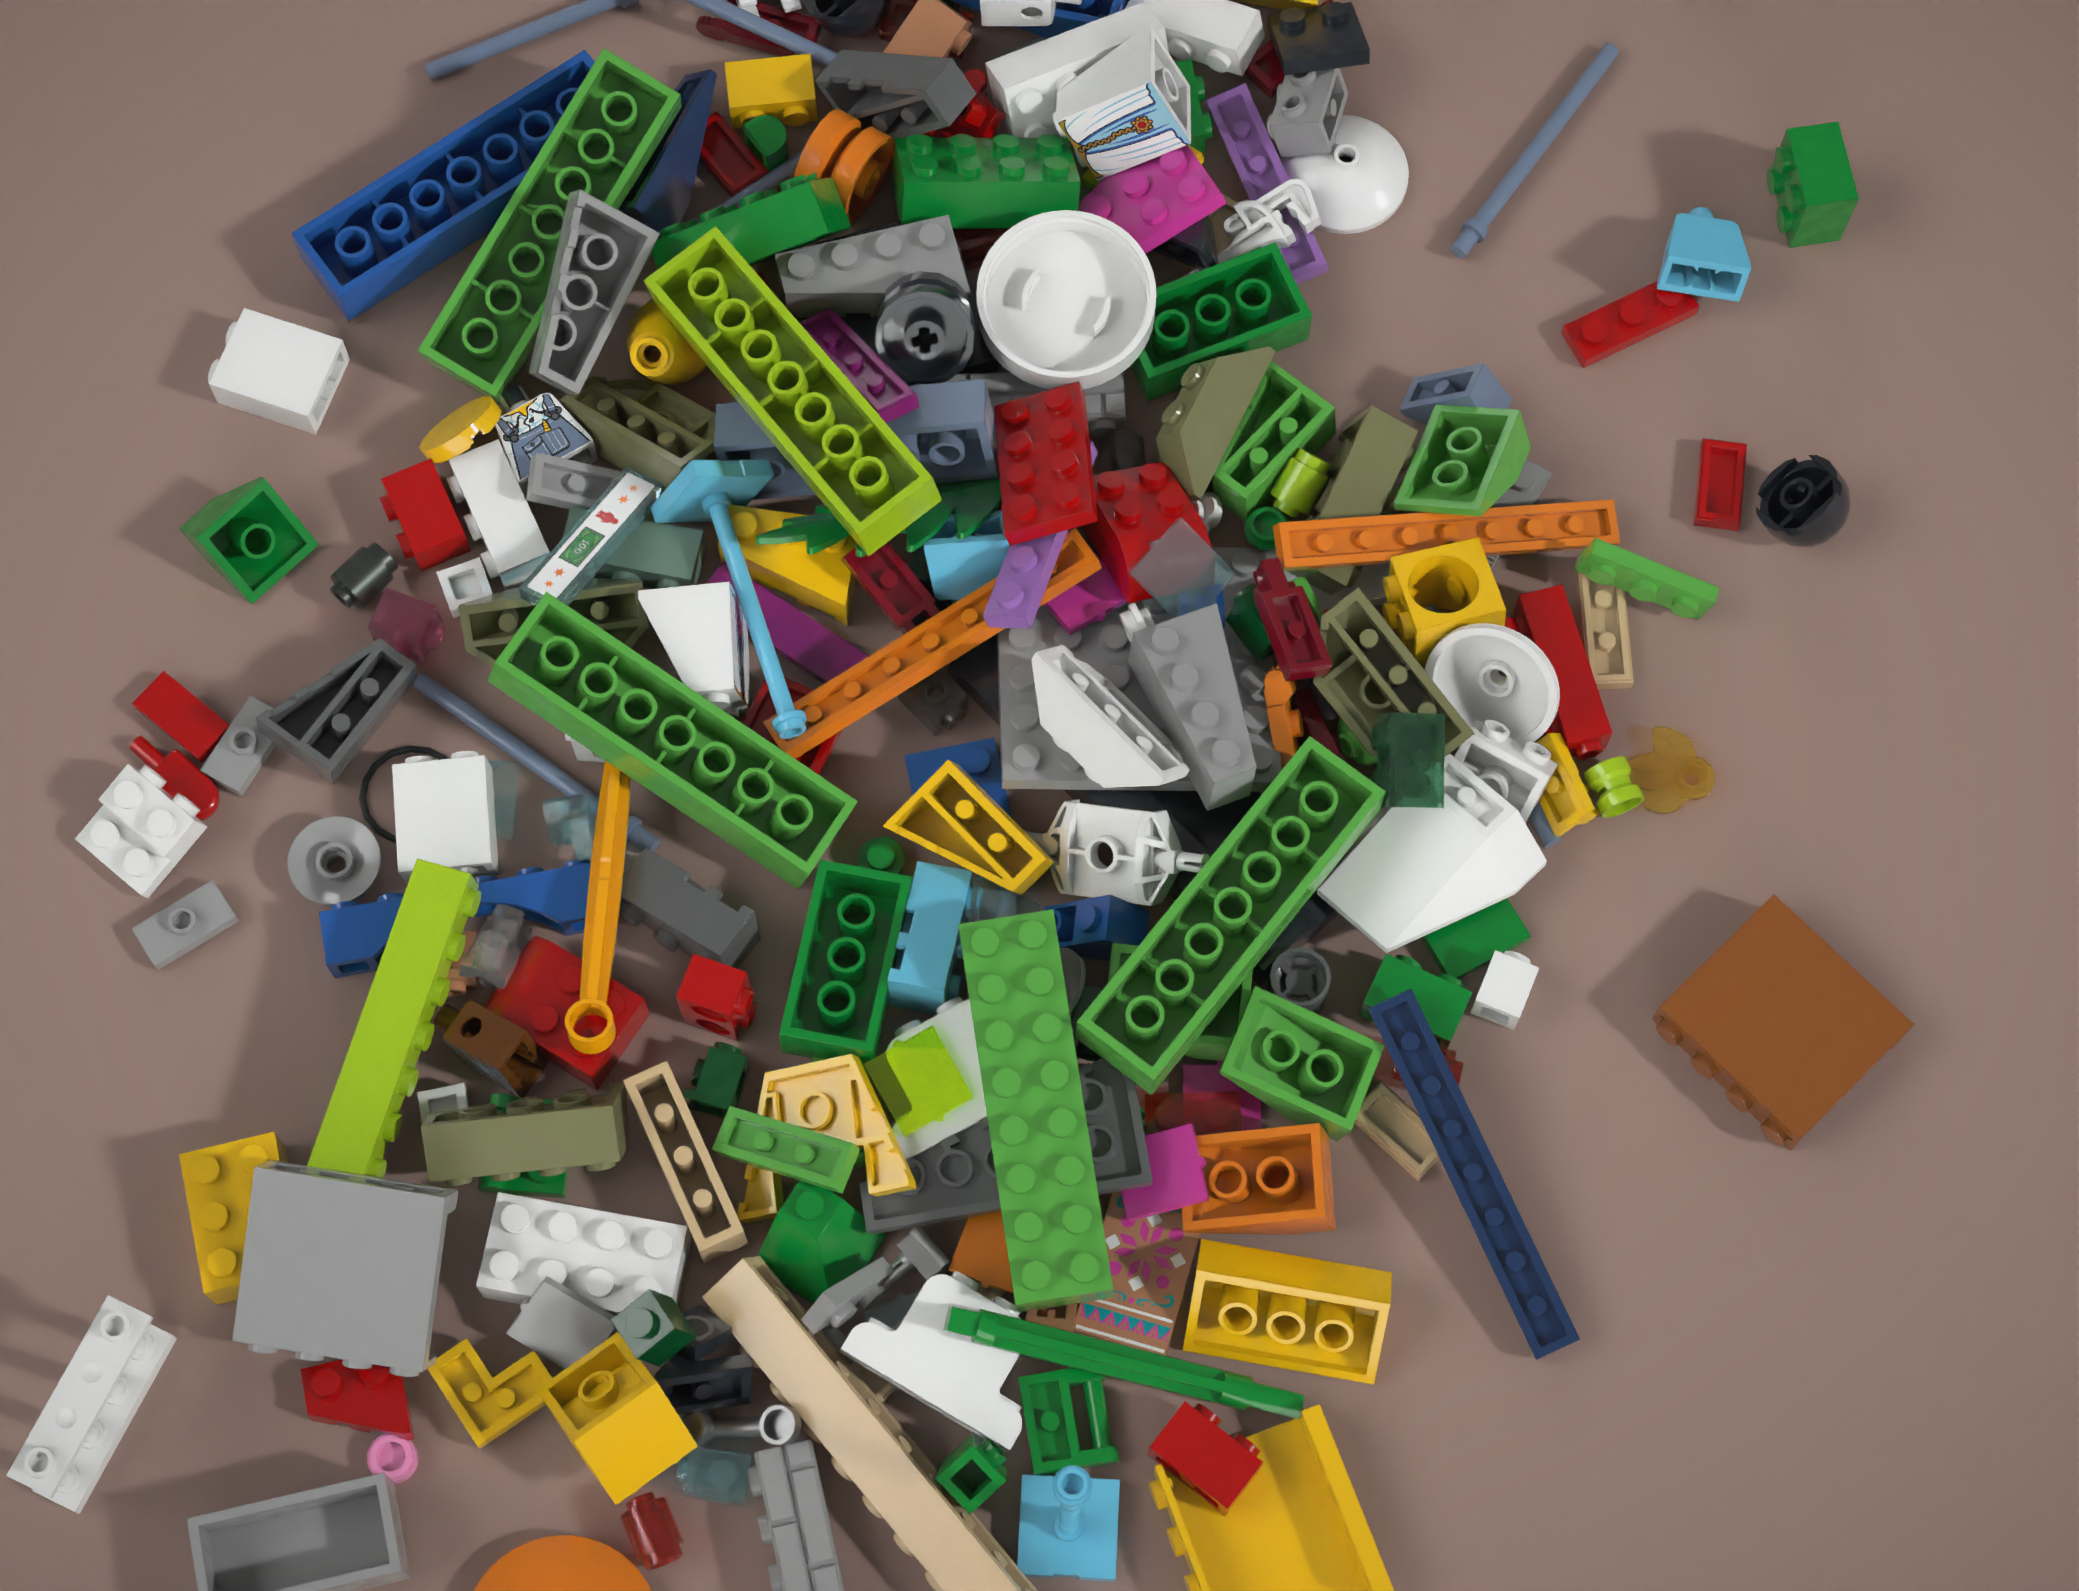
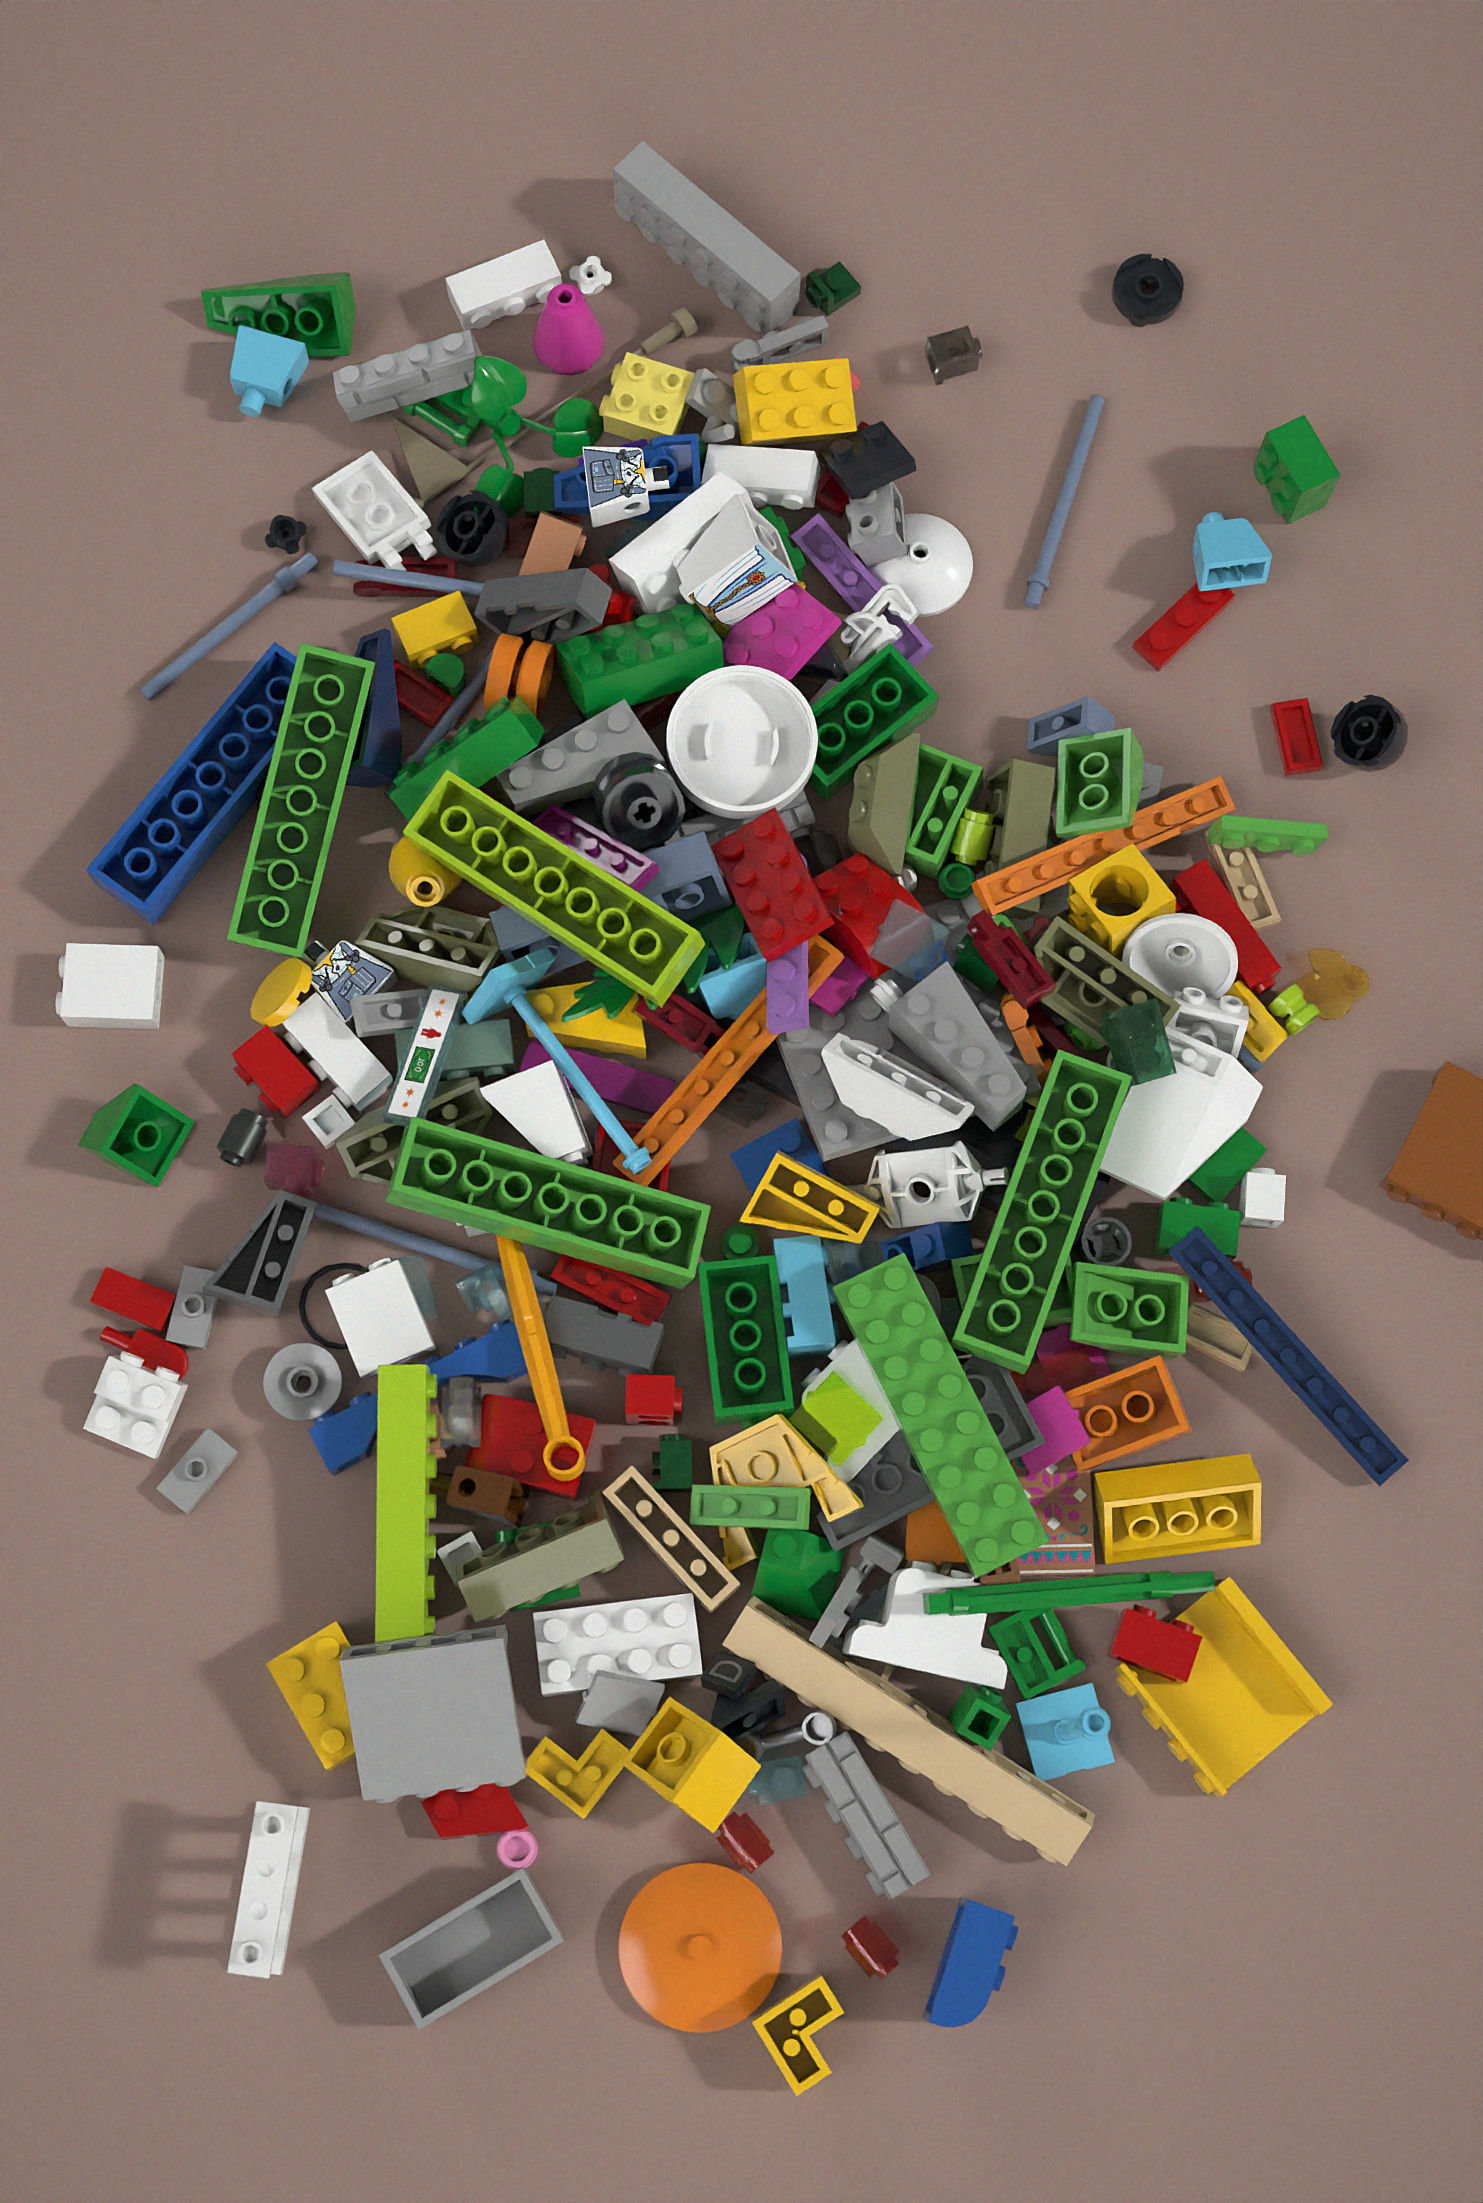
camera: 20 degrees left, 5 degrees up
(588, 286) = (353, 849): light grey wedge -> none
(654, 1327) = (699, 1685): brick -> none
(717, 863) = (612, 1289): none -> red plate

